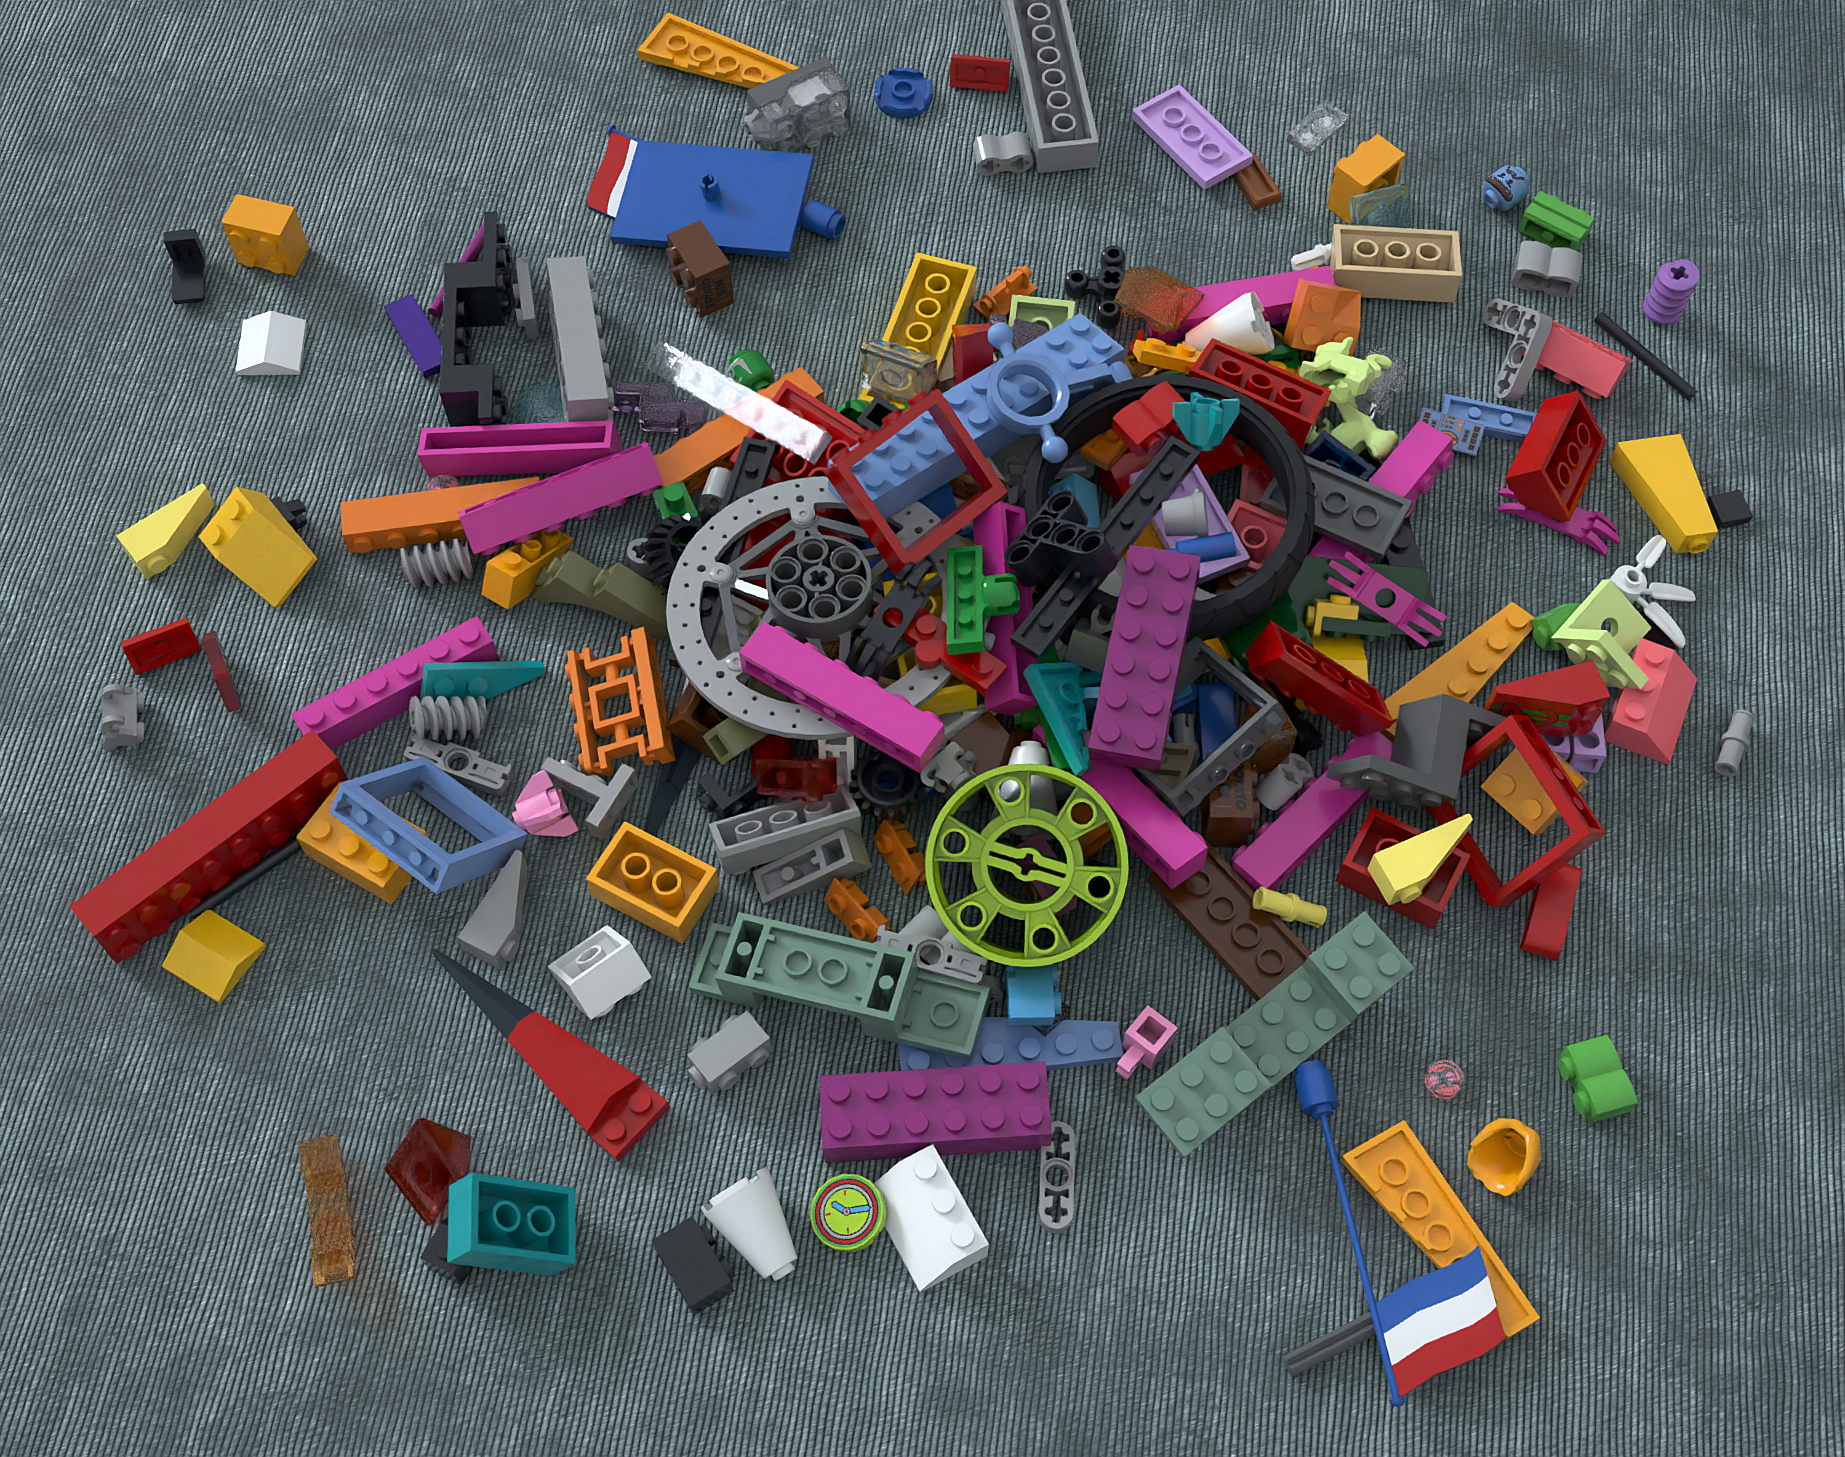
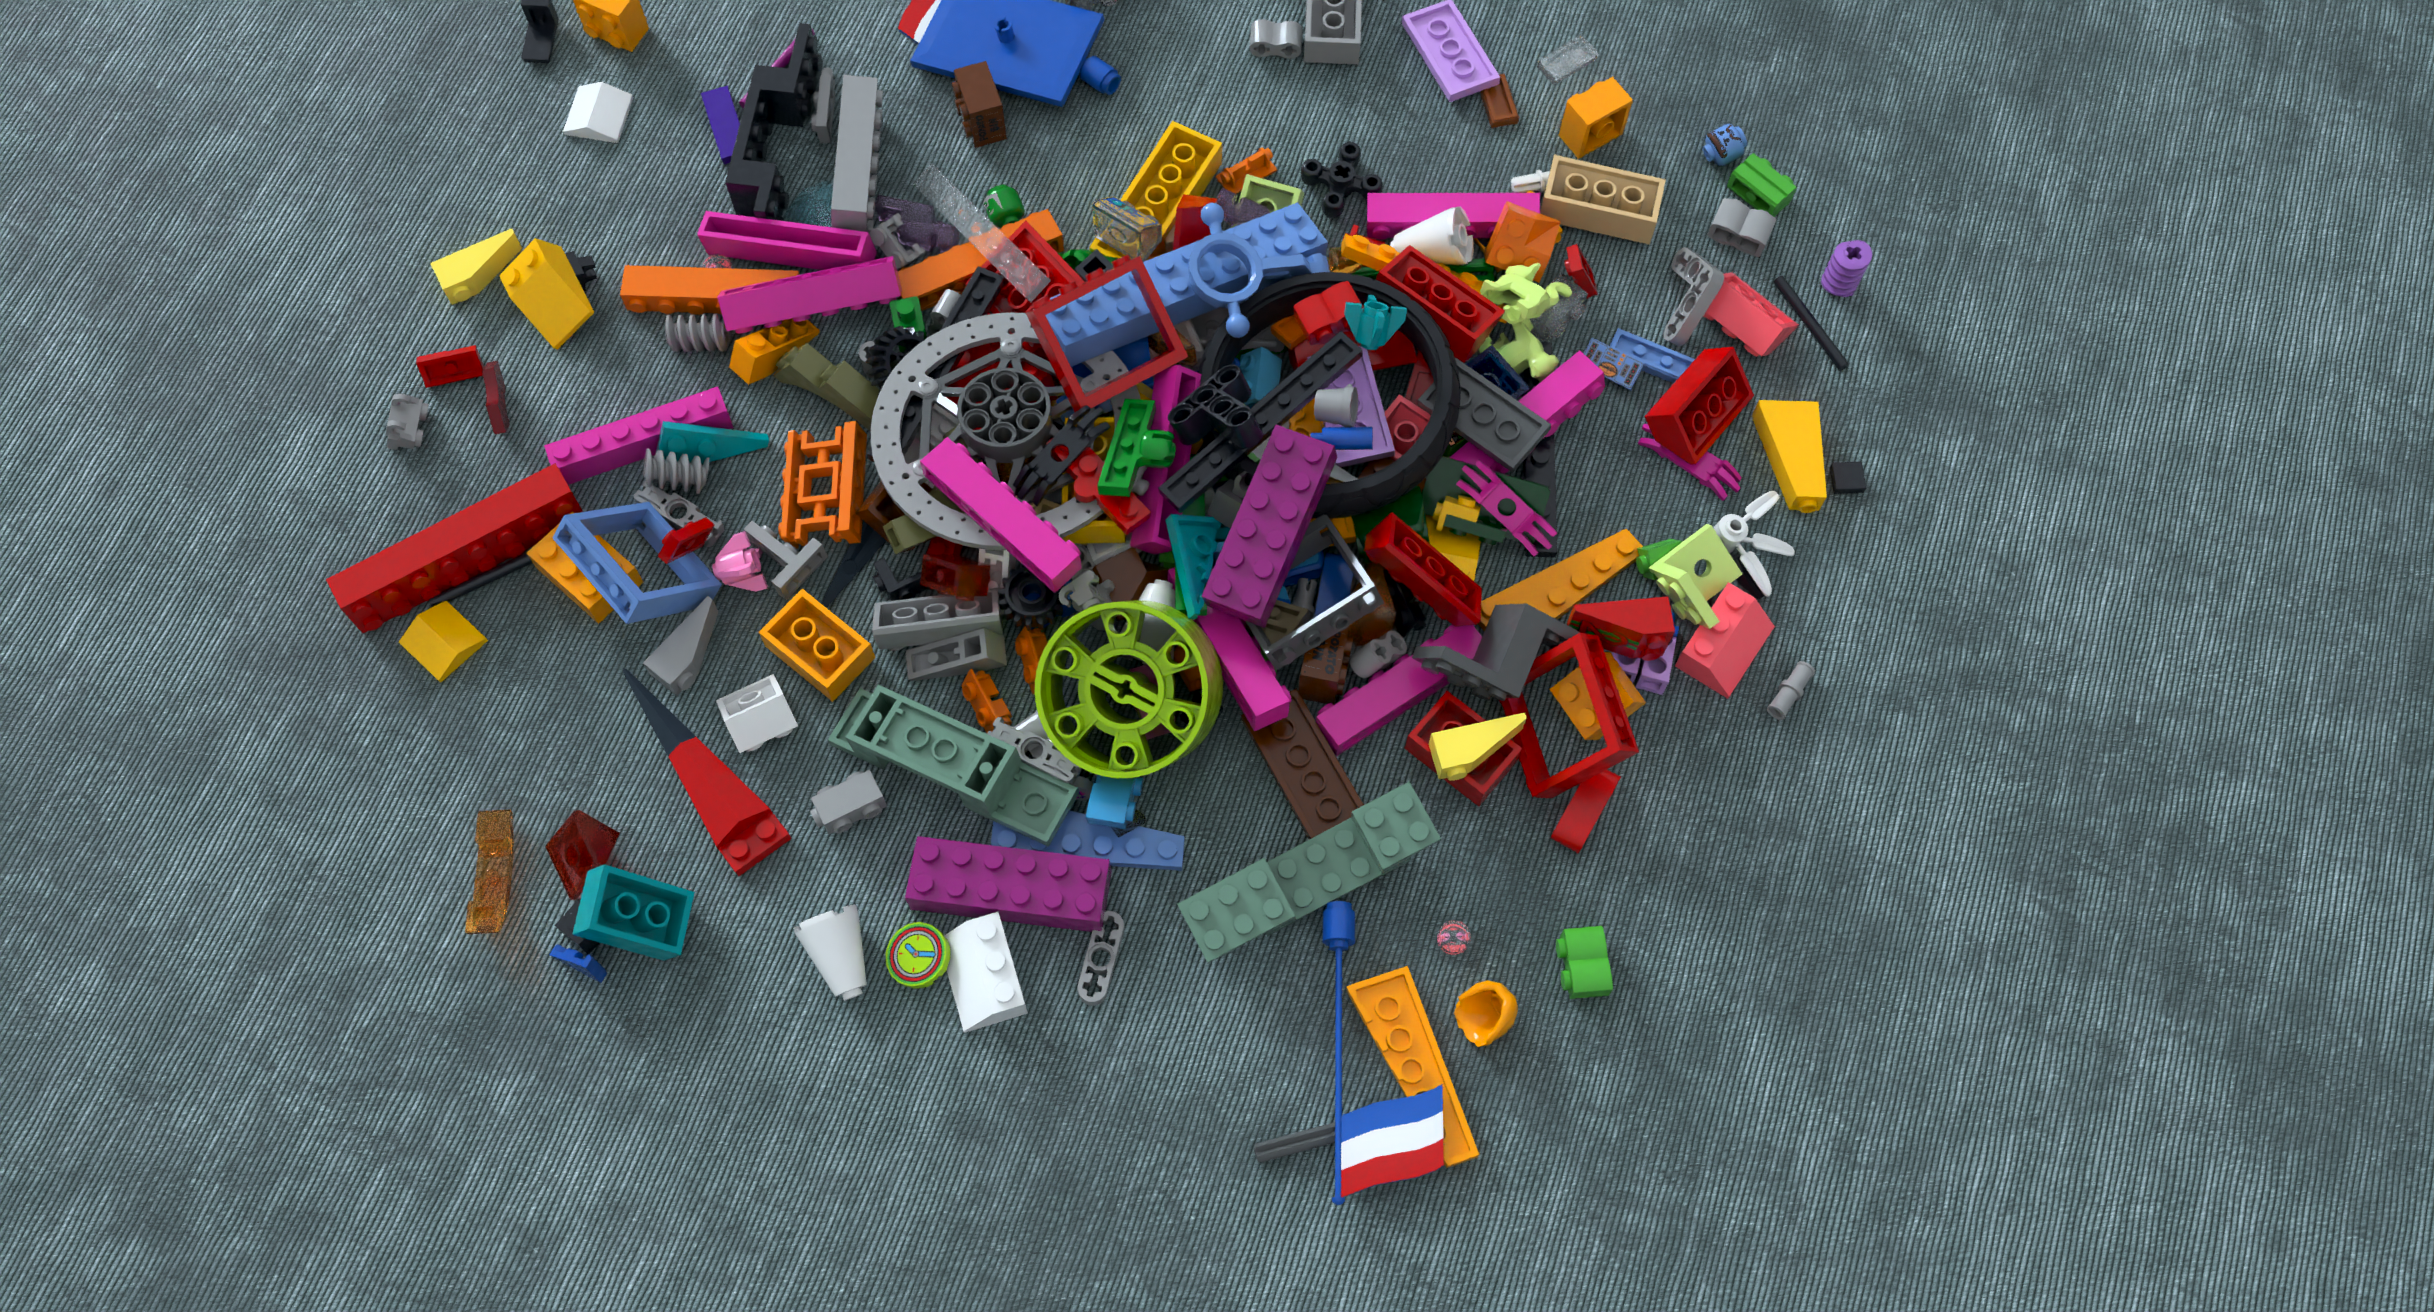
camera: 10 degrees right, 5 degrees up
(450, 1294) = (575, 959): none -> blue tile
(478, 791) = (685, 540): none -> red plate
(635, 432) = (889, 244): none -> light grey piece
(693, 1264) = (779, 974): black brick -> none
(1145, 1042) = (1203, 857): bright pink brick -> none
(1157, 298) = (1375, 197): clear orange slope -> none
(1289, 907) = (1356, 765): light yellow pin -> none
(1382, 207) = (1602, 147): clear light blue slope -> none
(1391, 338) = (1580, 270): none -> red plate

